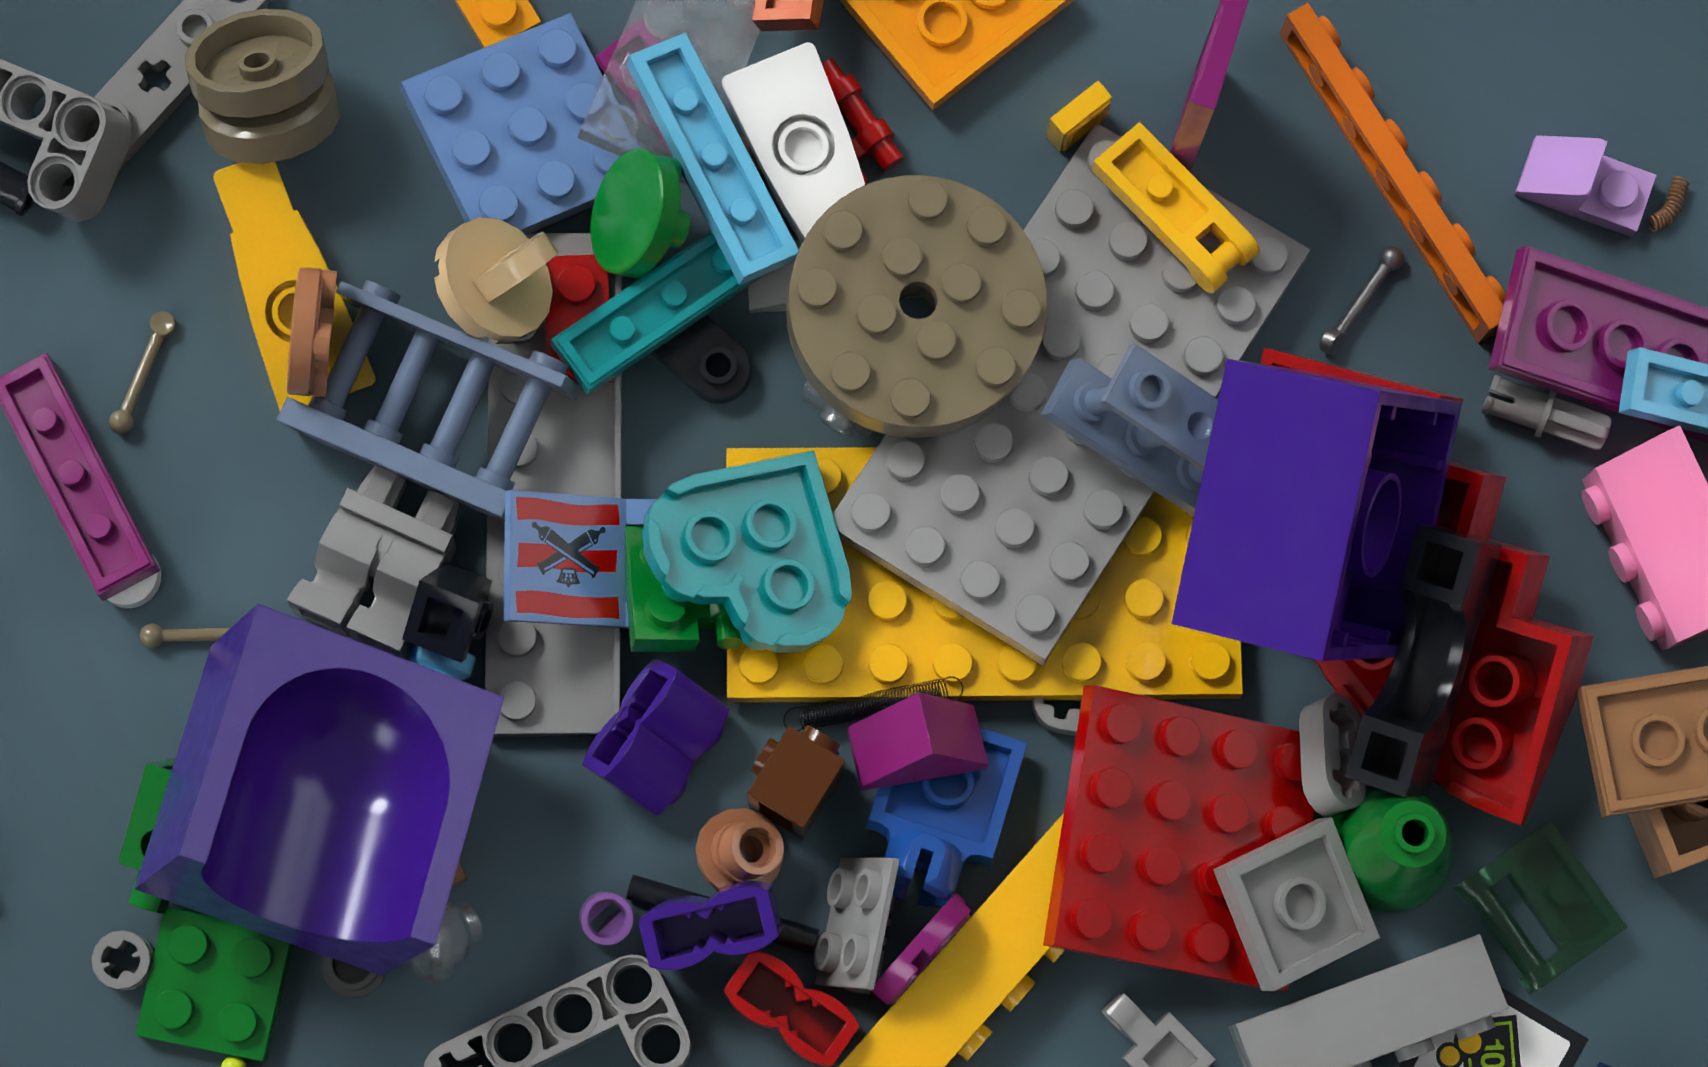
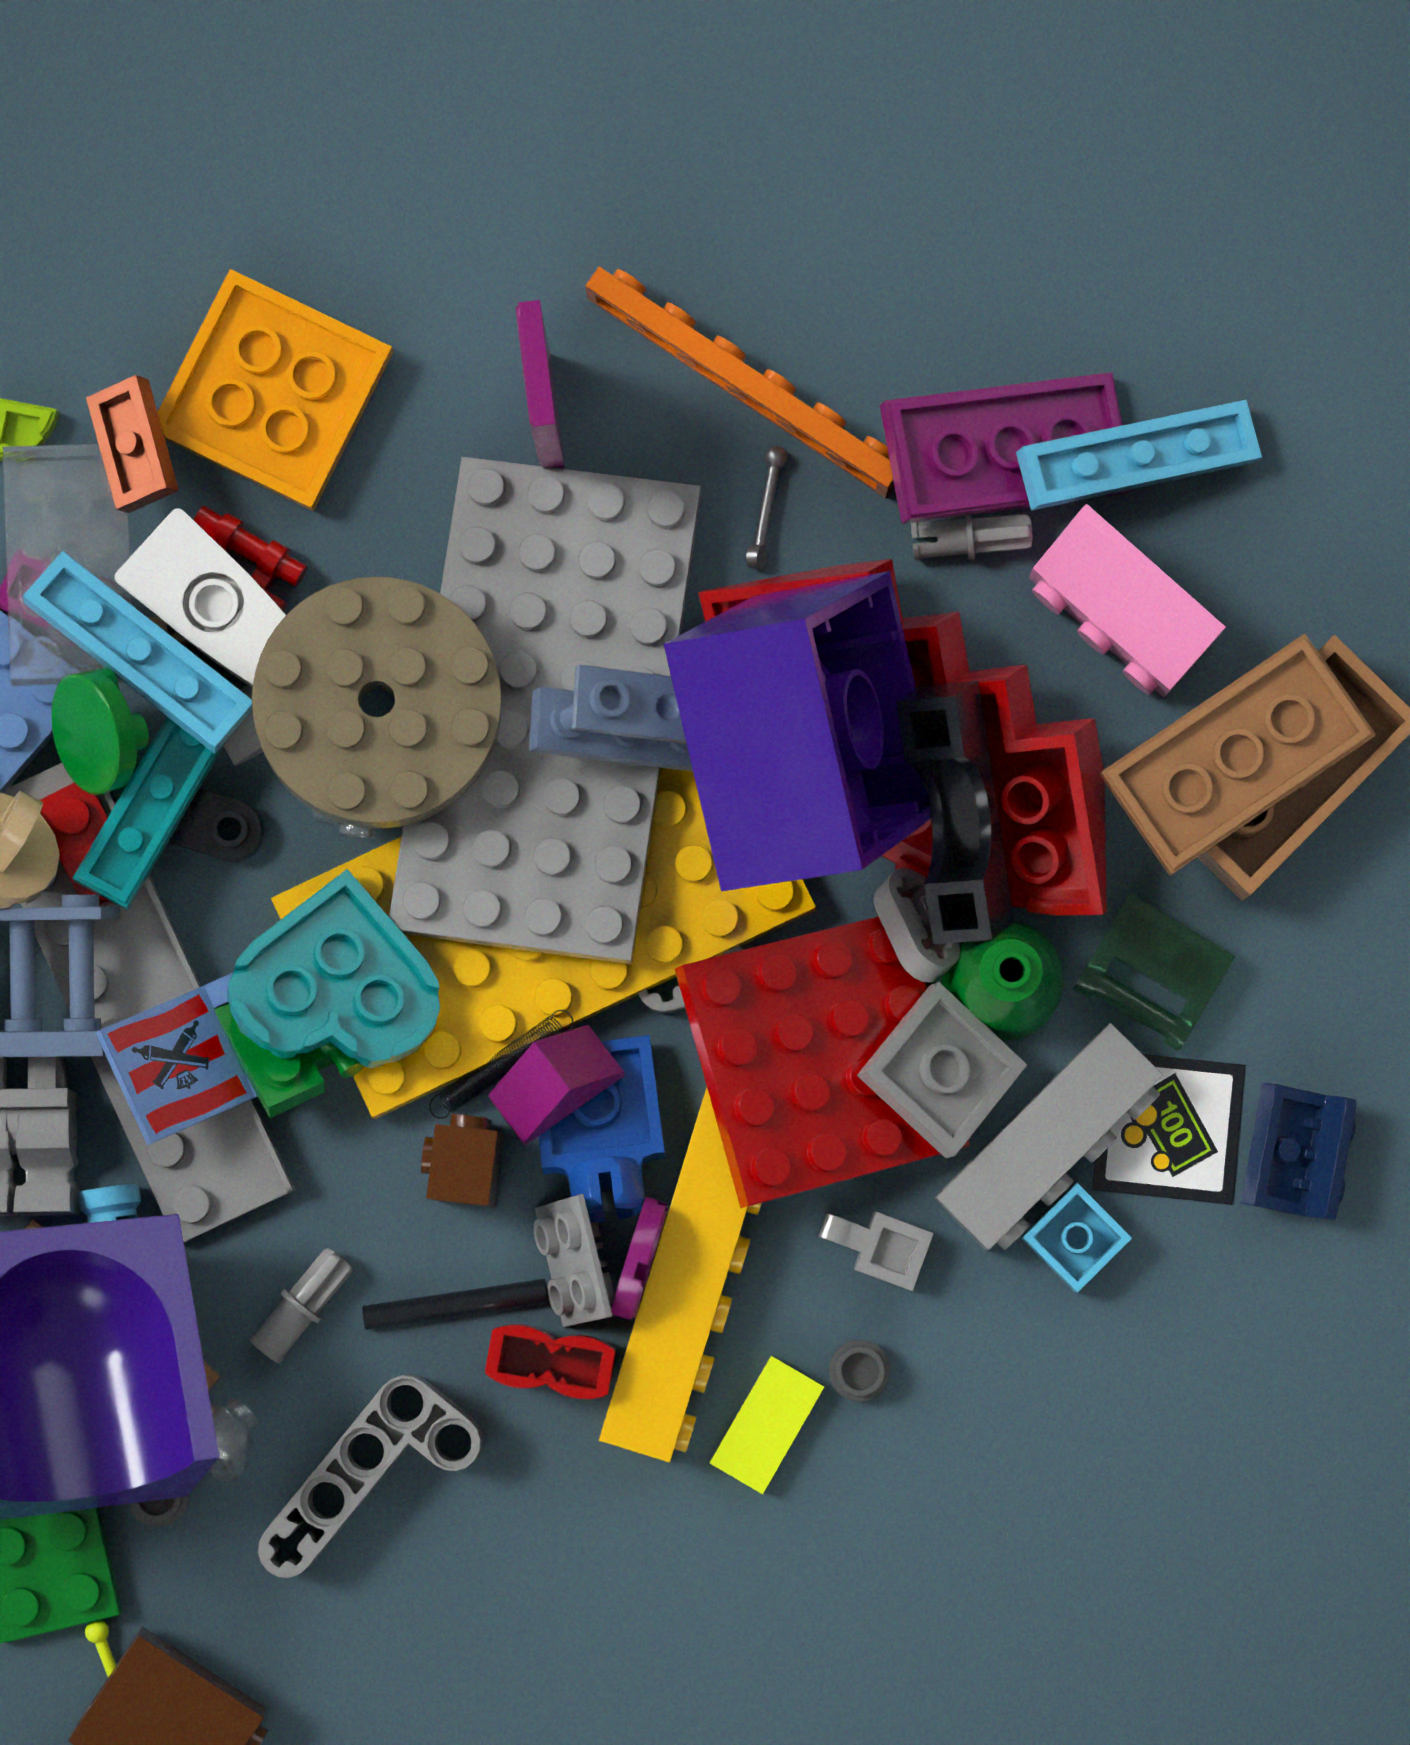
camera: 15 degrees left, 5 degrees up
(449, 611) = (96, 1156): black brick -> none
(576, 846) = (301, 1305): none -> light grey axle
(615, 927) = (367, 1360): medium lavender hinge -> none
(656, 737) = (327, 1180): dark purple brick -> none
(692, 927) = (431, 1332): dark purple brick -> none
(739, 848) = (445, 1245): nougat piece -> none
(1079, 117) = (444, 459): yellow tile -> none
(1174, 206) = (563, 505): yellow plate -> none
(1584, 183) = (916, 312): lavender slope -> none
(1672, 202) = (996, 308): medium nougat leg -> none

